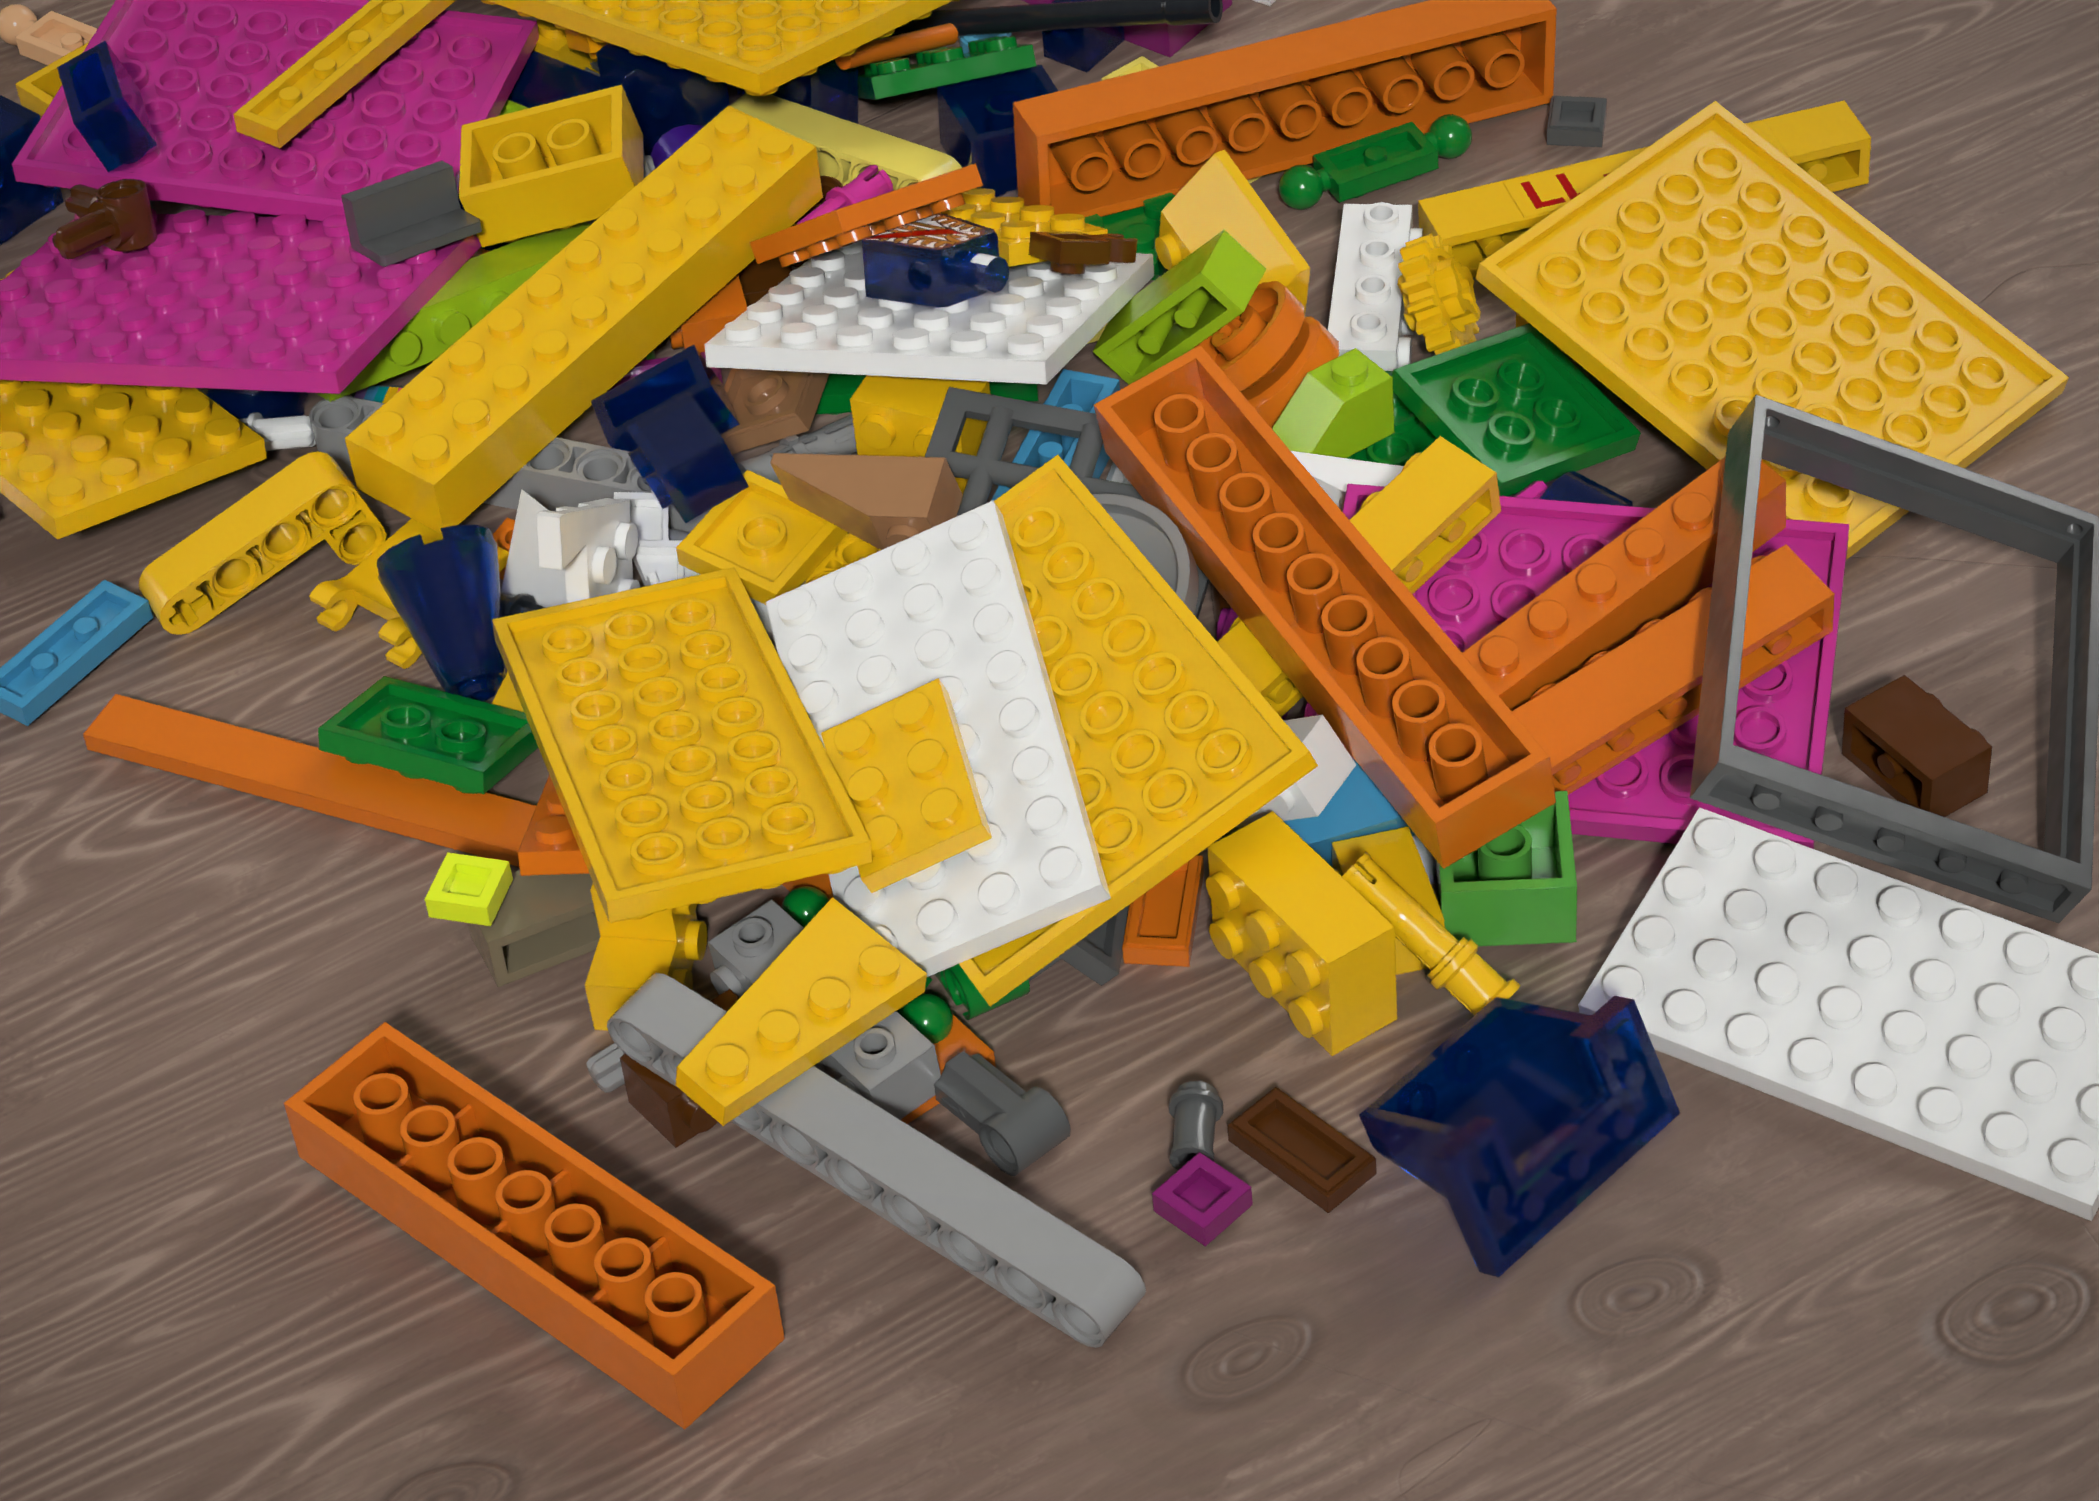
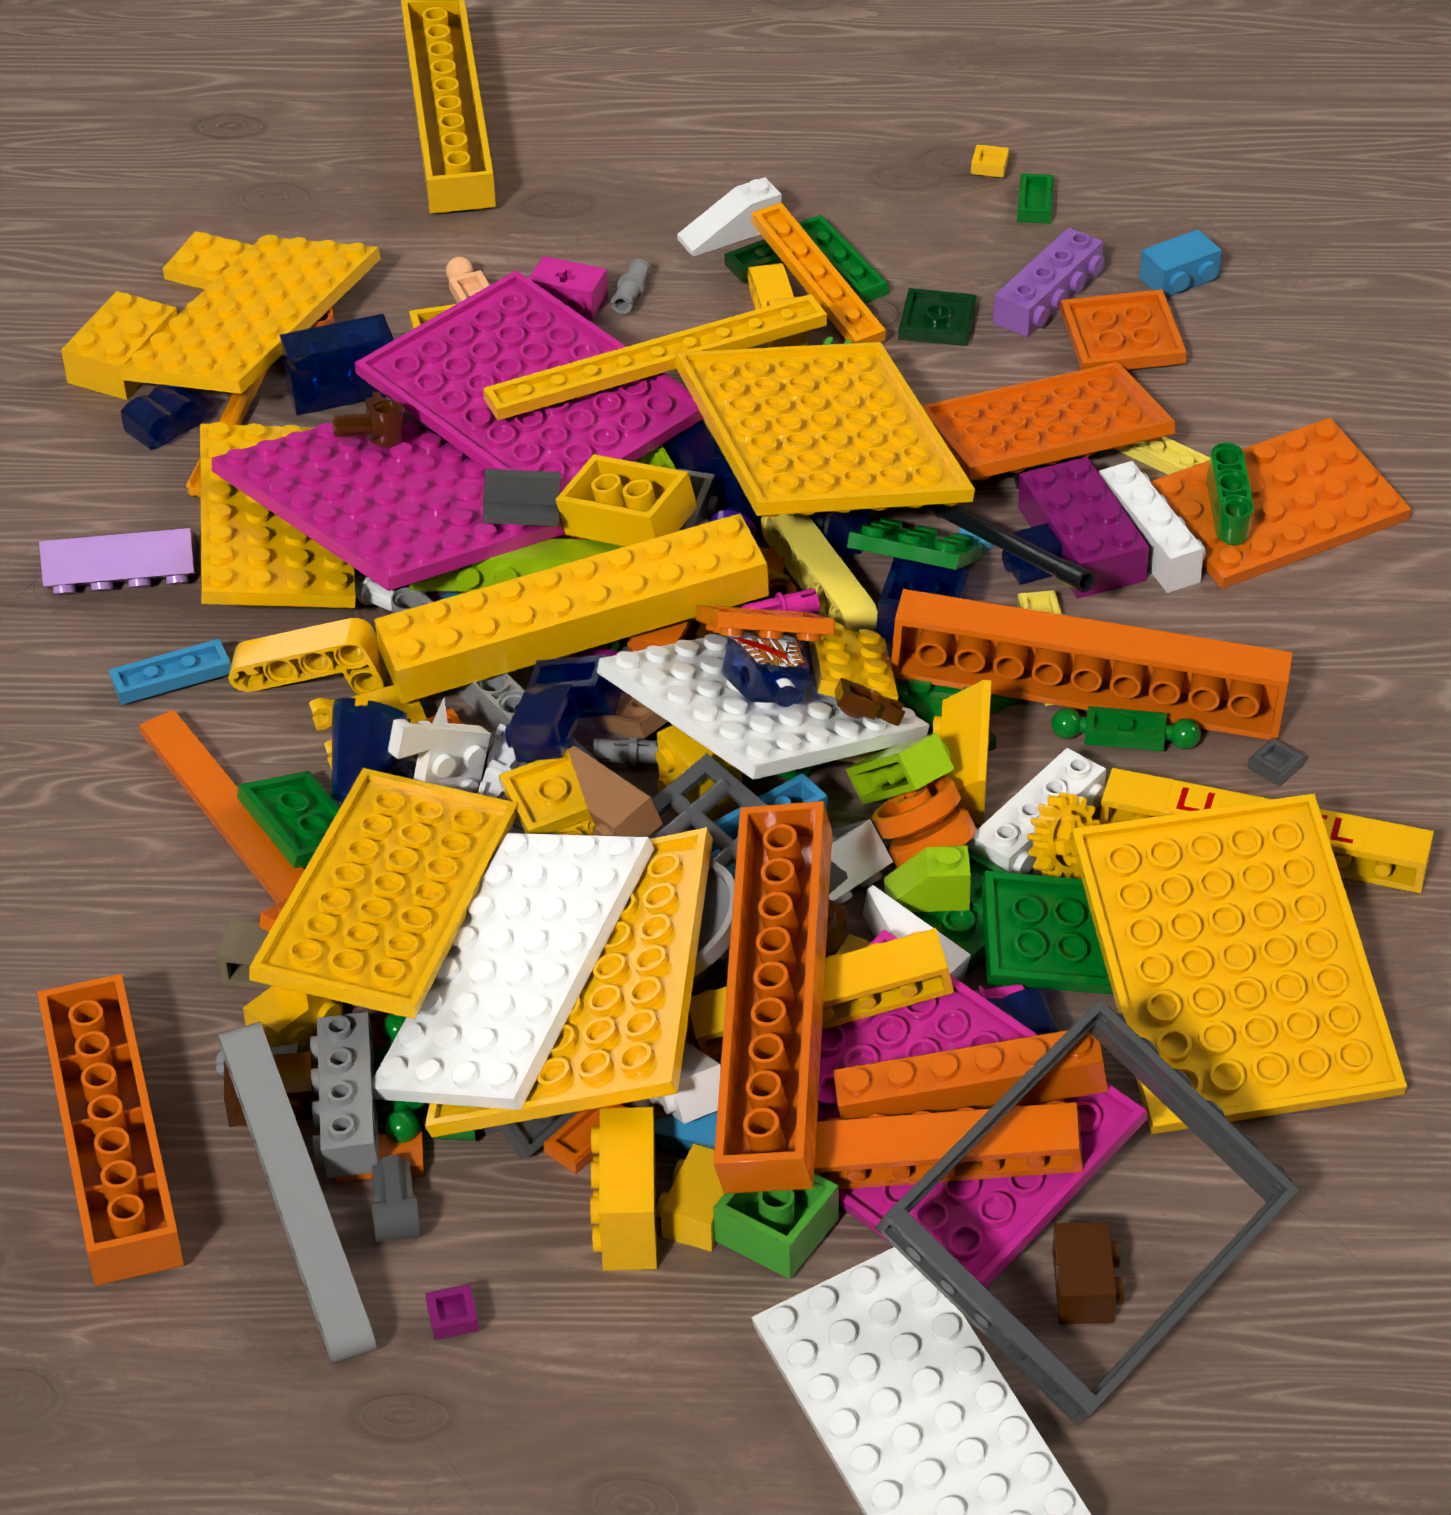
camera: 30 degrees right, 0 degrees up
(107, 107) = (416, 352): clear blue piece -> none
(469, 889) = (225, 920): neon yellow plate -> none
(800, 1010) = (318, 1083): yellow wing -> none
(900, 45) = (903, 517): orange bar -> none
(909, 783) = (471, 983): yellow plate -> none
(1195, 1114) = (482, 1272): dark grey pin -> none
(1302, 1149) = (533, 1315): reddish brown tile -> none
(1451, 962) = (694, 1252): yellow pin -> none
(1524, 1117) = (648, 1368): clear blue windscreen -> none

